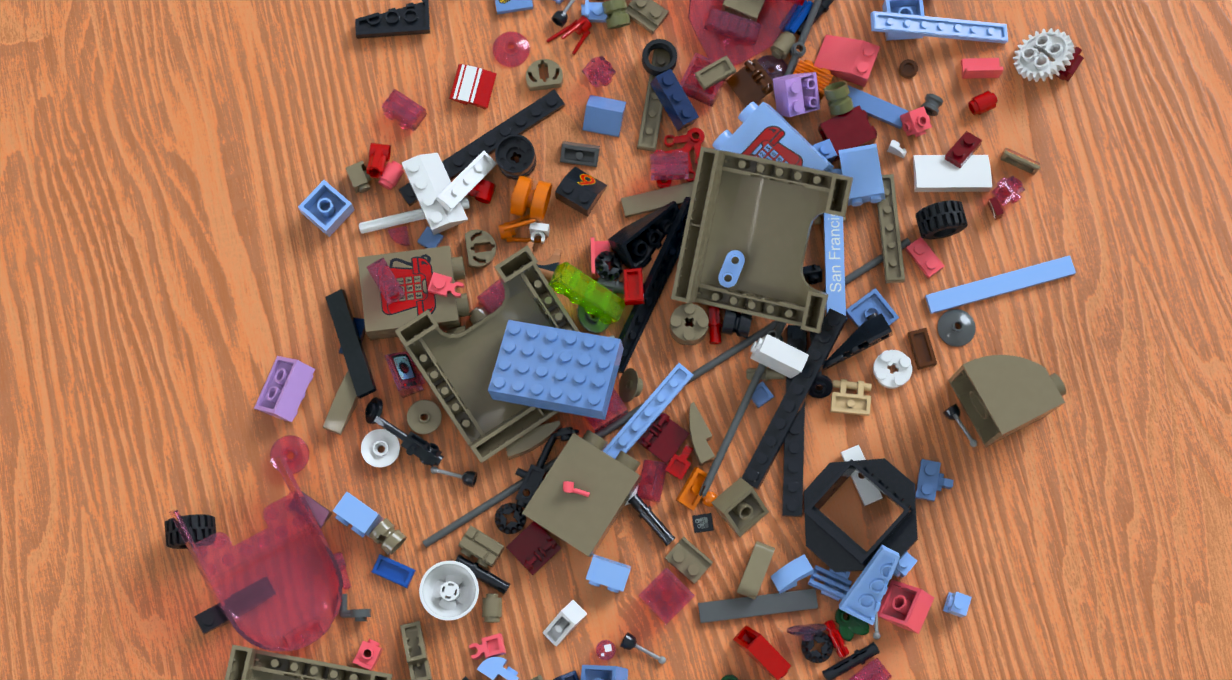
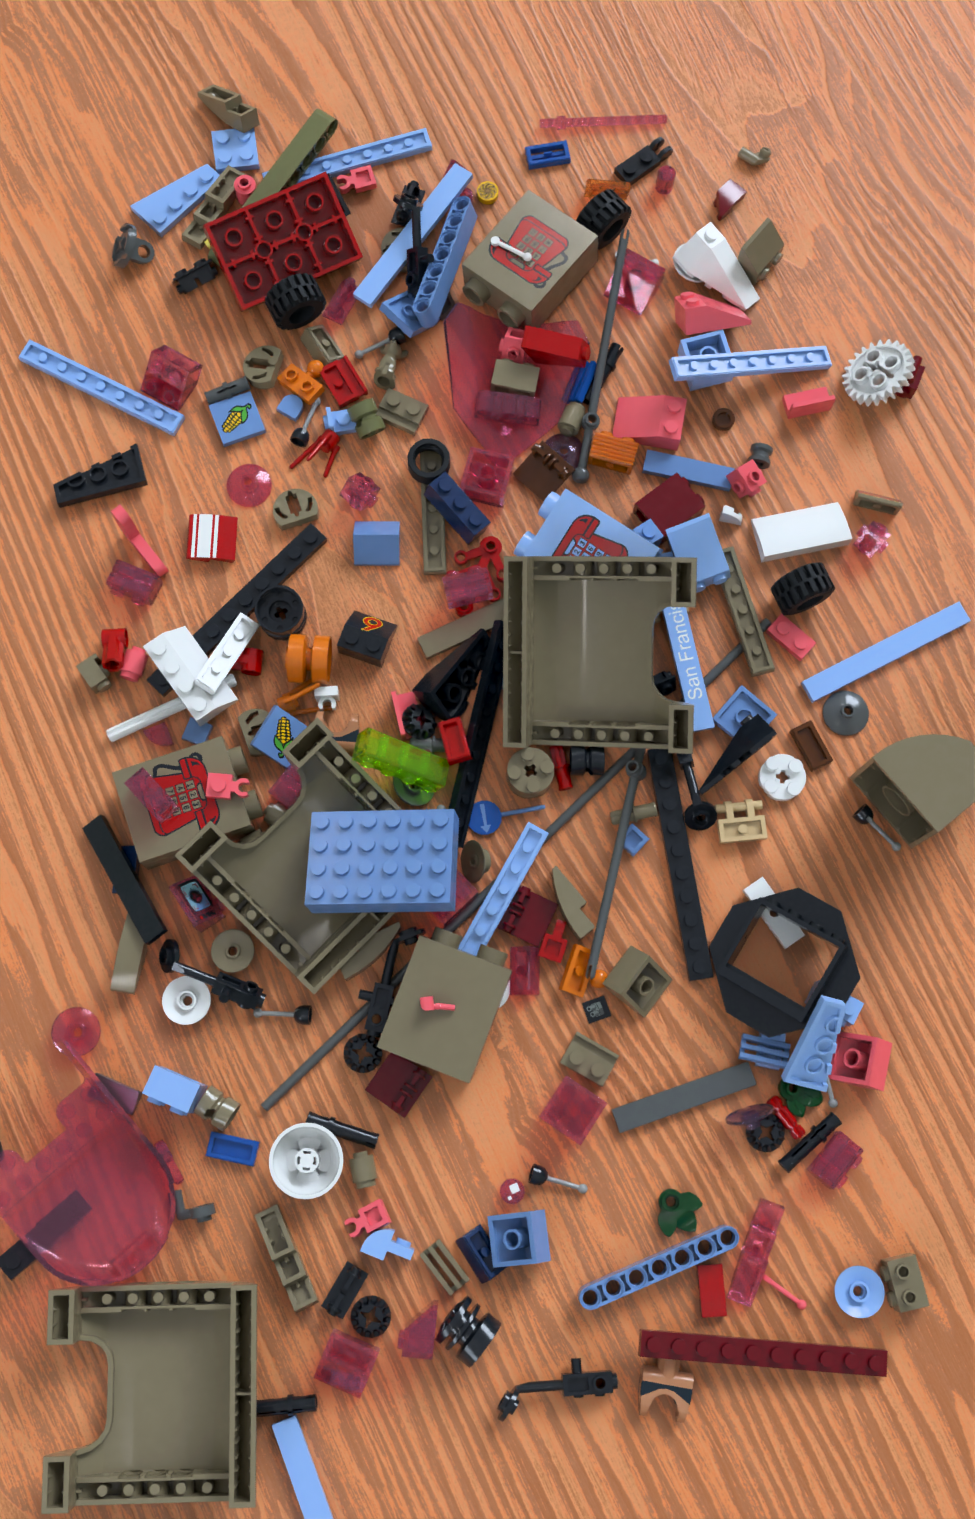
camera: 15 degrees left, 0 degrees up
(284, 388) = (54, 951): lavender slope -> none
(326, 208) = (62, 719): light blue brick -> none
(368, 662) = (225, 1271): coral brick -> none
(410, 71) = (130, 531): none -> coral beam
(481, 547) = (334, 1096): dark tan brick -> none
(492, 252) = (276, 734): none -> medium blue tile
(564, 623) = (455, 1169): white slope -> none
(579, 153) = (356, 594): dark grey slope -> none
(608, 573) = (496, 1096): light blue brick -> none
(647, 353) = (487, 816): none -> blue piece
(651, 519) = (555, 1035): black pin -> none
(715, 72) = (499, 466): dark tan tile -> none
(730, 268) = (568, 696): light blue plate -> none
(755, 570) = (673, 1054): dark tan beam -> none
(762, 652) = (702, 1154): red slope -> none
(778, 356) = (647, 790): white brick -> none
(792, 572) = (716, 1049): light blue slope -> none
(794, 399) = (674, 839): black plate -> none
(796, 94) = (600, 473): lavender slope -> none
(838, 96) = (652, 471): olive wheel -> none
(930, 480) = (856, 901): medium blue hinge -> none
(957, 604) = (920, 1044): light blue brick -> none
(963, 149) = (808, 501): dark red plate -> none
(982, 103) = (819, 442): red brick -> none
(995, 208) = (861, 562): dark red tile -> none

